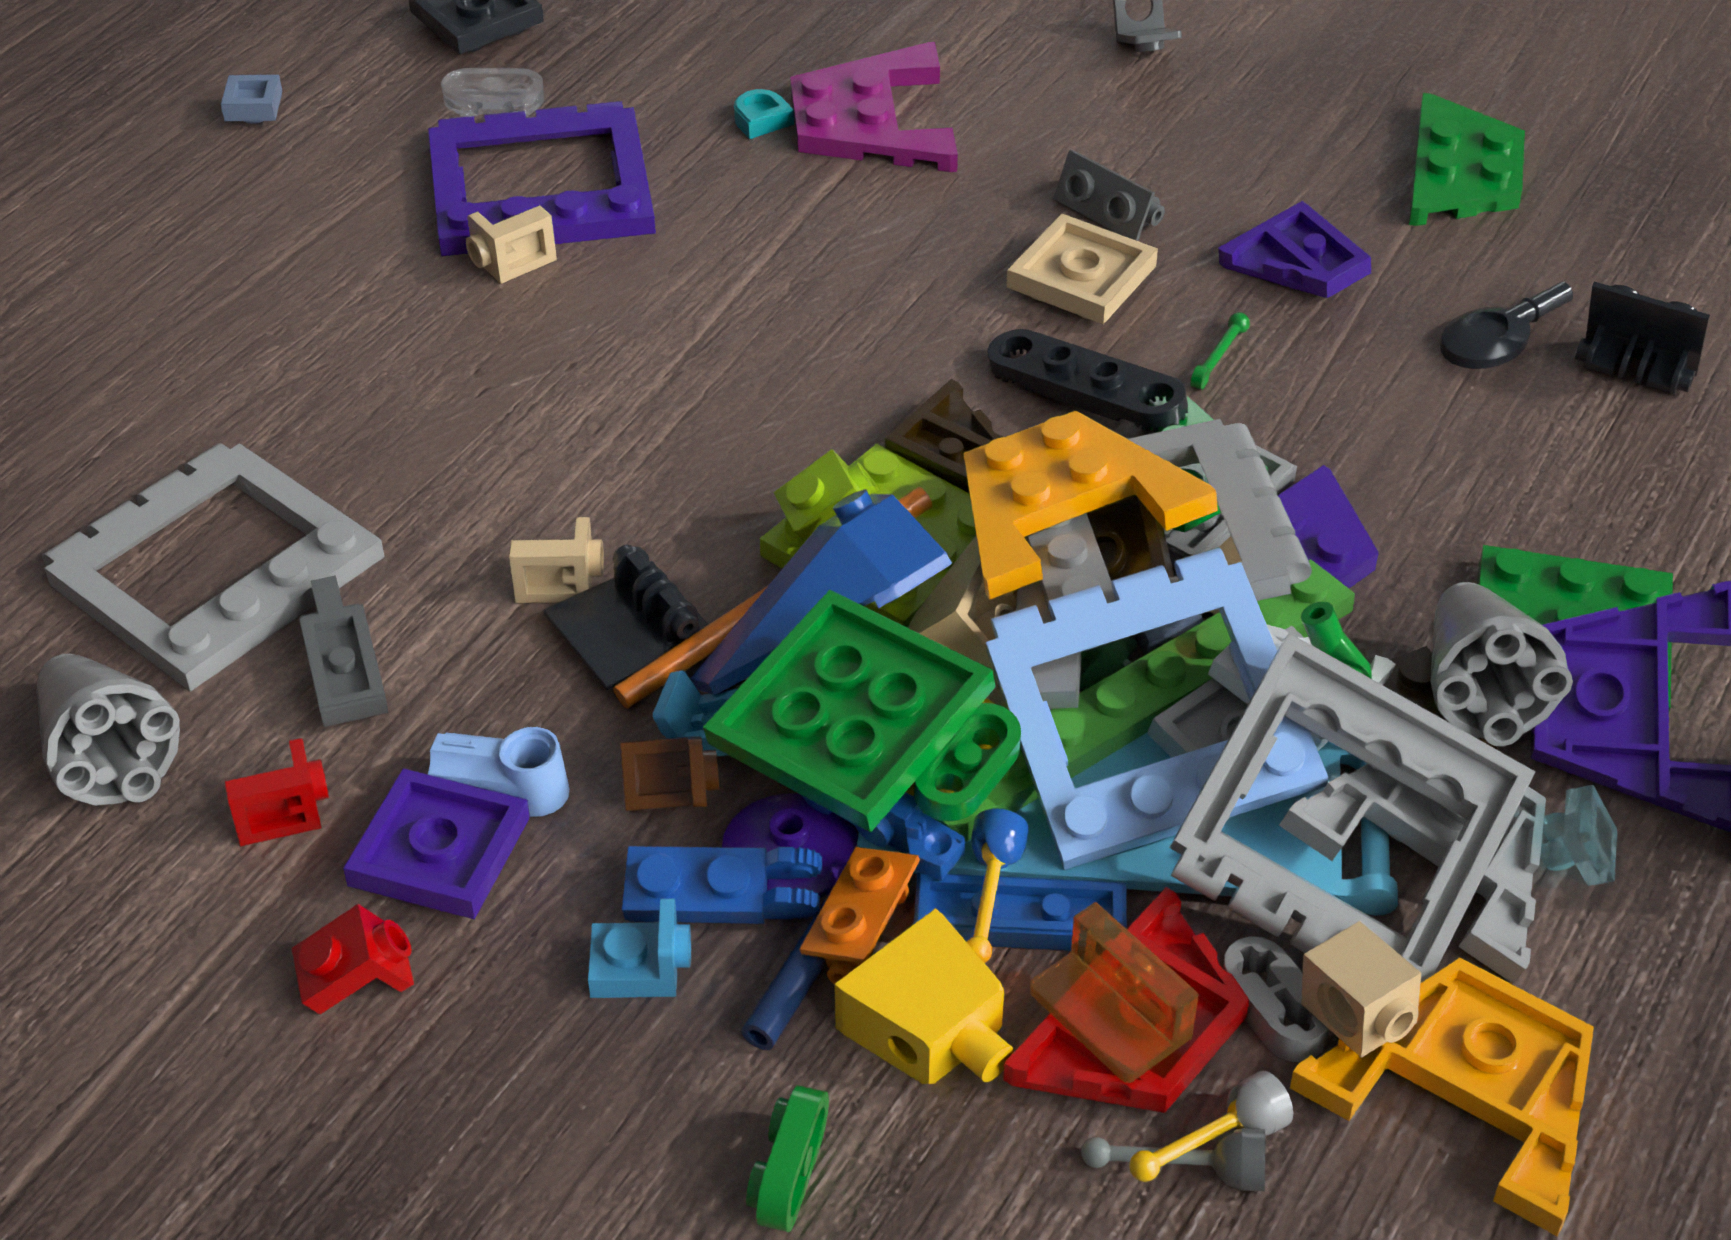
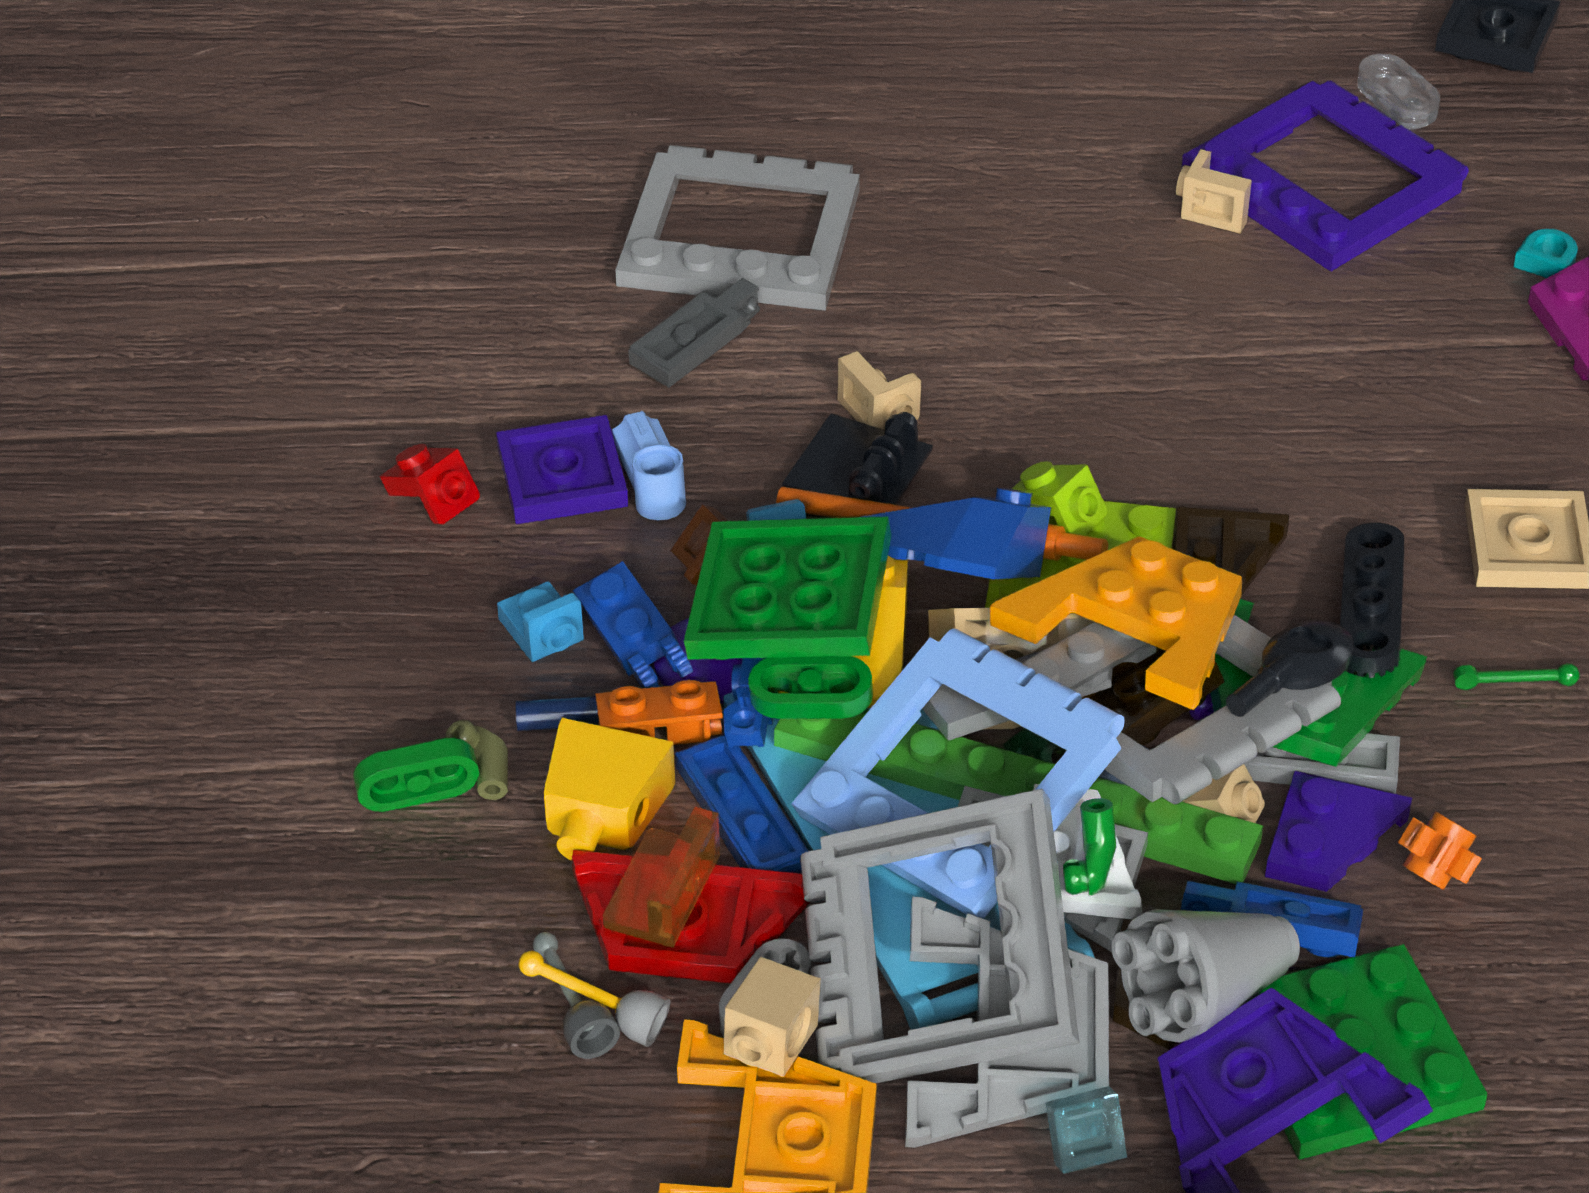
camera: 60 degrees right, 0 degrees up
(103, 731) = (518, 252): light grey cone -> none
(278, 800) = (536, 374): red bracket -> none
(779, 1081) = (490, 756): none -> olive arm
(996, 841) = (779, 759): hinge -> none
(1194, 425) = (1296, 660): none -> black piece
(1403, 472) = (1439, 850): none -> orange gear
(1409, 601) = (1322, 924): none -> blue hinge

